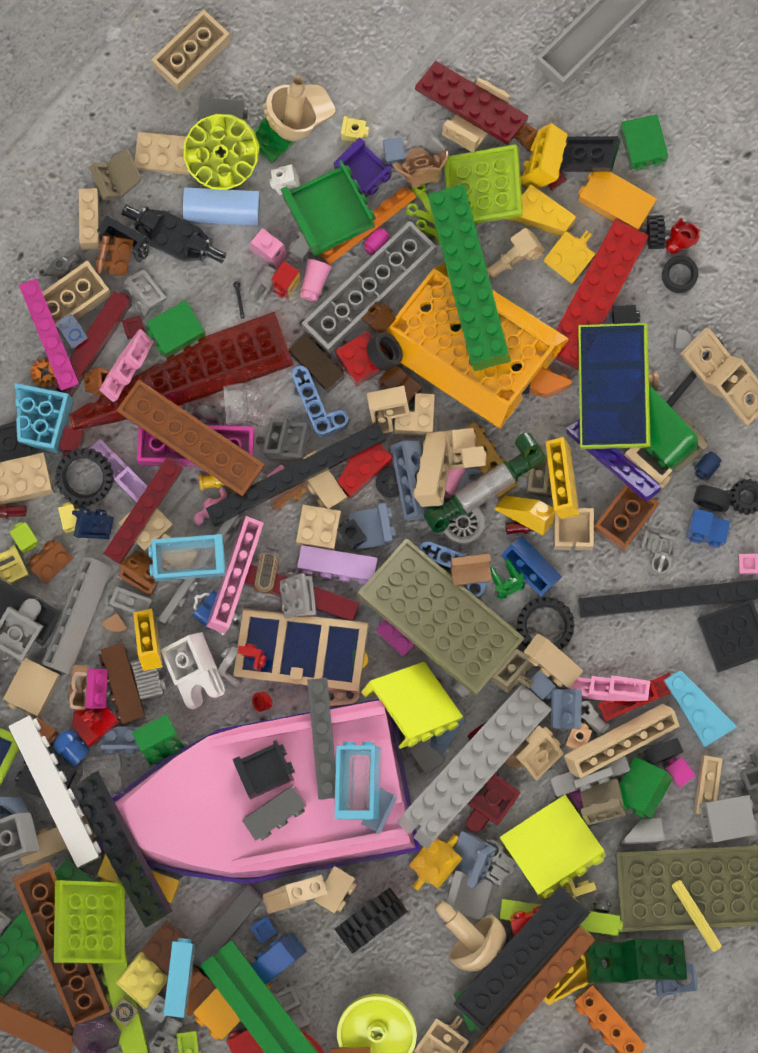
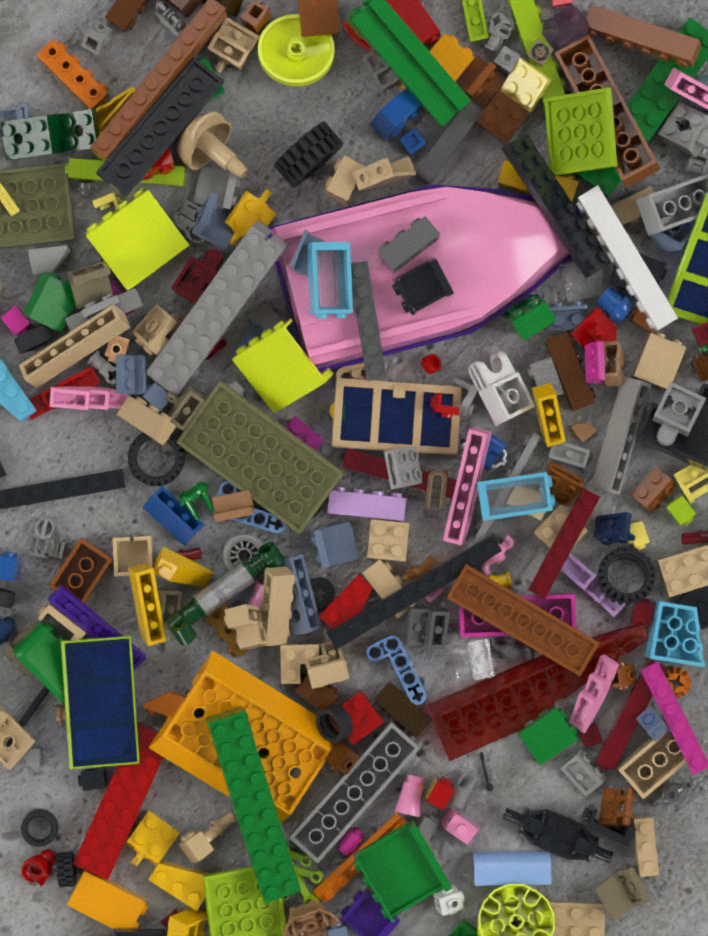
camera: 175 degrees right, 10 degrees up
(179, 978) = (489, 84): medium azure piece -> none
(355, 541) = (346, 531): black brick -> none

